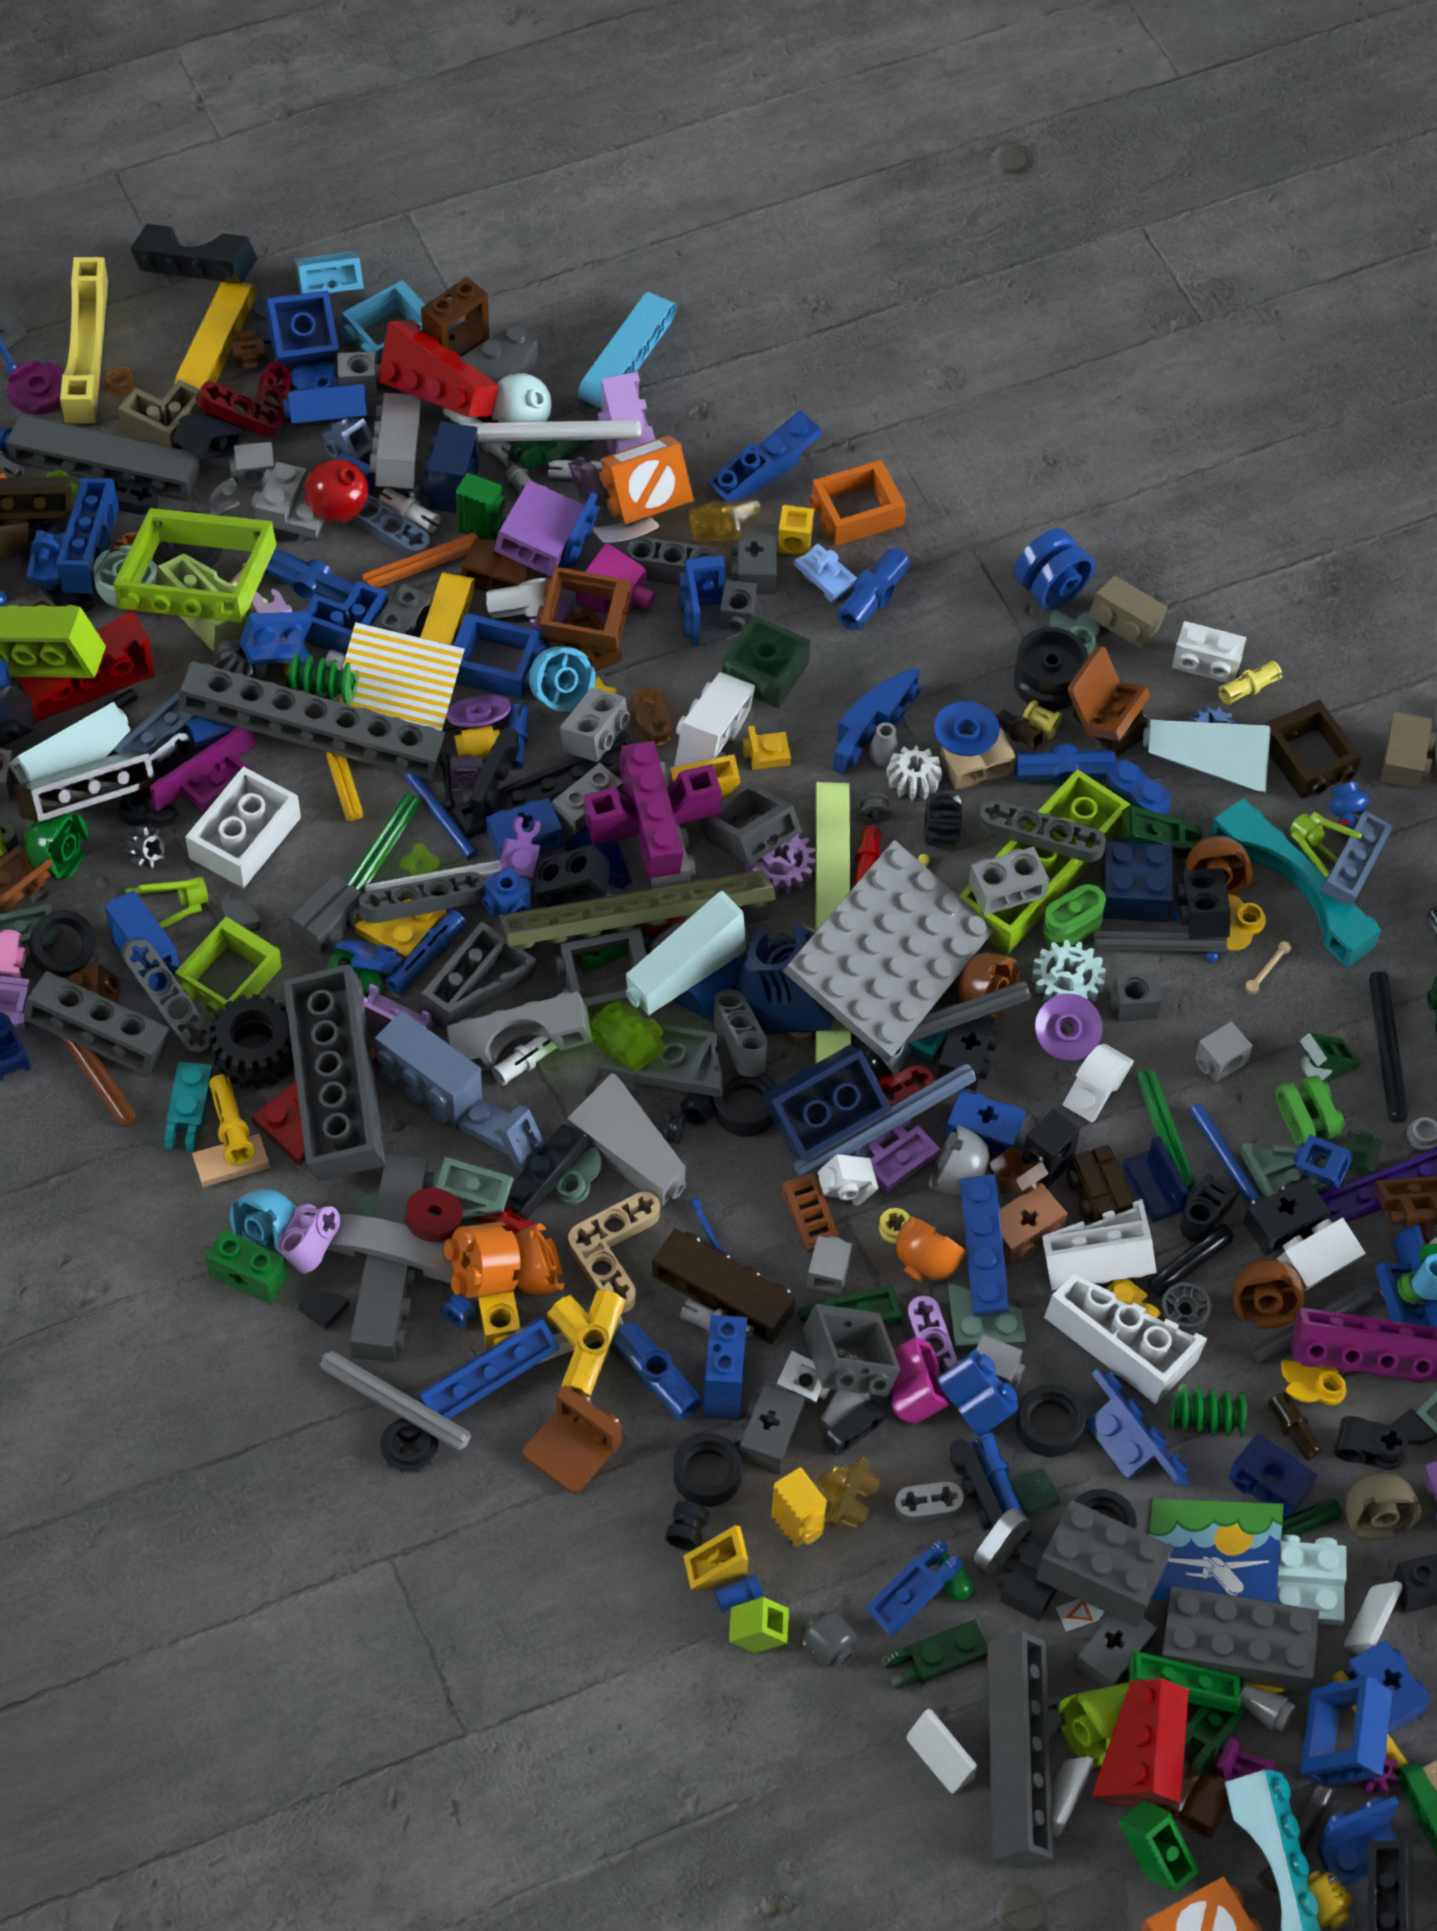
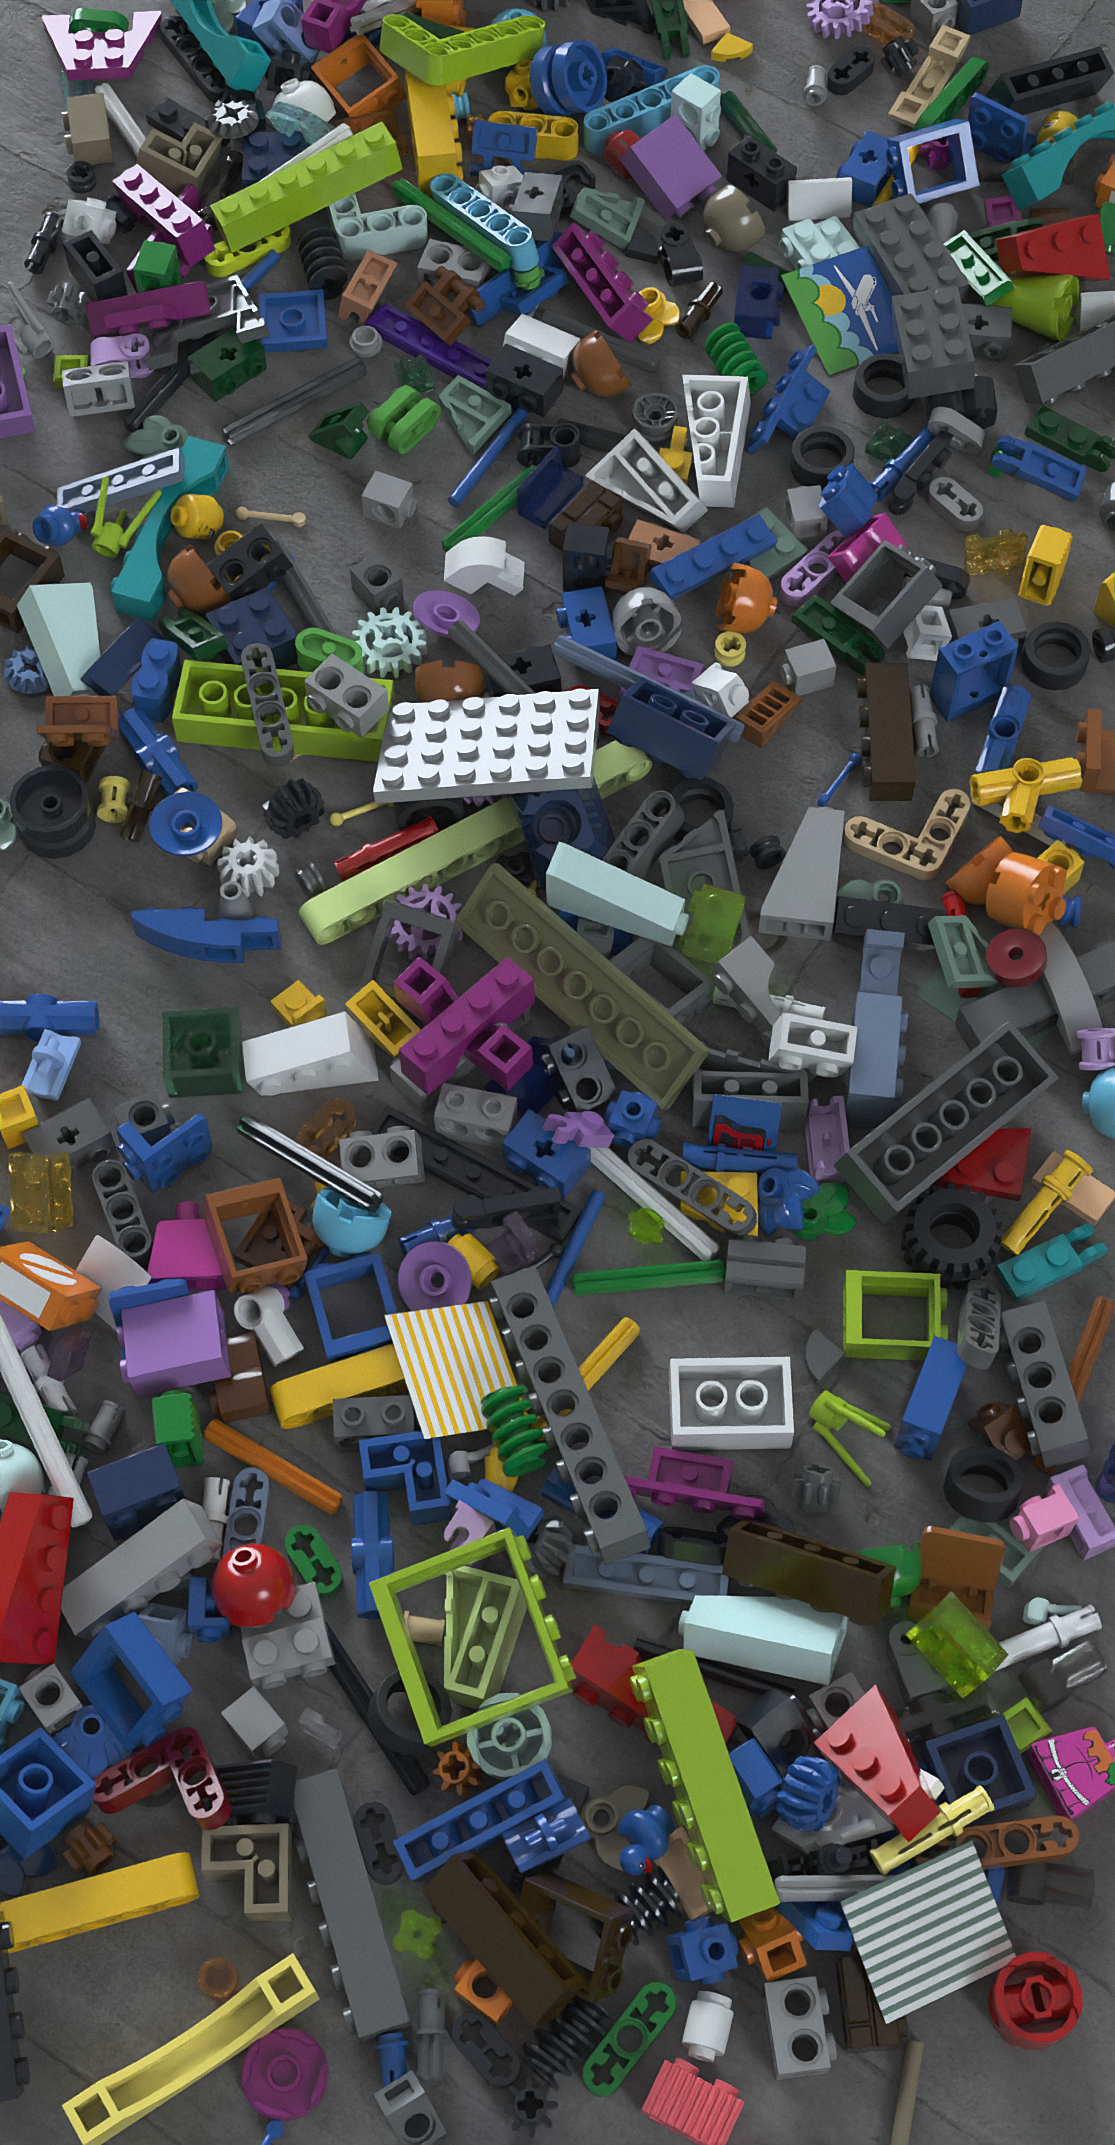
camera: 120 degrees left, 5 degrees up
(338, 551) = (321, 1556): none -> green beam
(444, 954) = (744, 1123): none -> sticker
(462, 1011) = (812, 1044): none -> white brick
(623, 676) = (310, 1163): none -> black axle
(1167, 771) = (120, 660): none -> dark blue tile
(1291, 900) = (197, 516): none -> yellow head
(1316, 1149) = (458, 372): blue brick -> none
(1401, 922) = (156, 437): none -> sand green plate

